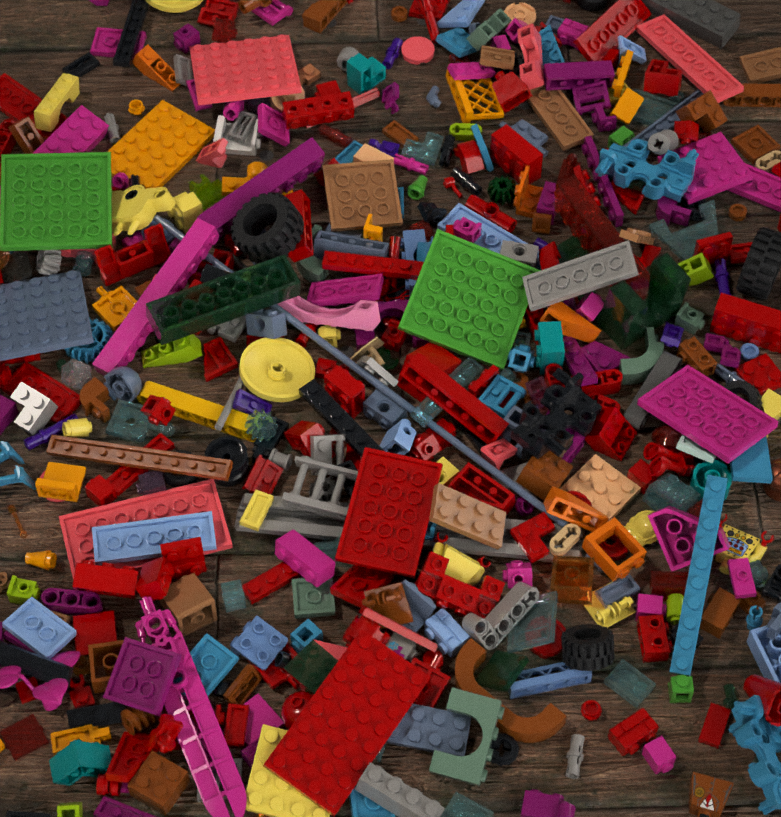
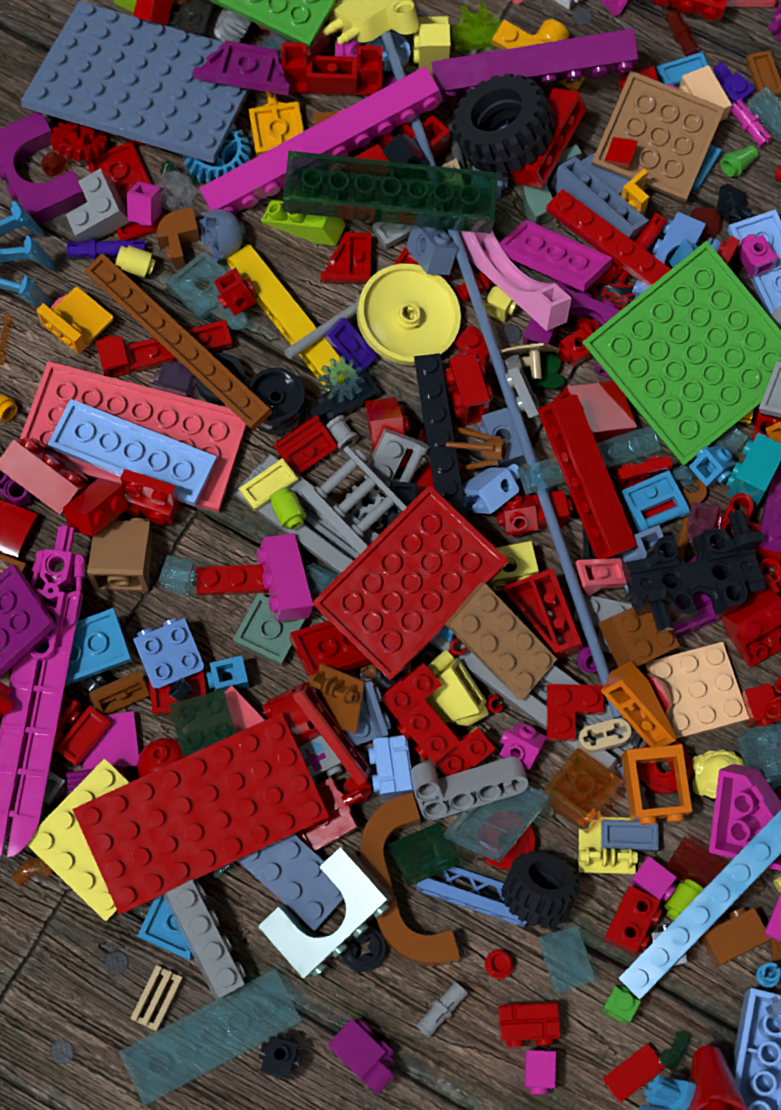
camera: 30 degrees right, 15 degrees up
(63, 389) = (144, 203): none -> dark pink brick
(76, 279) = (244, 67): none -> magenta wing
(279, 516) = (287, 509): none -> lime brick
(347, 213) = (621, 152): none -> red slope
(384, 415) = (493, 449): none -> dark orange plant

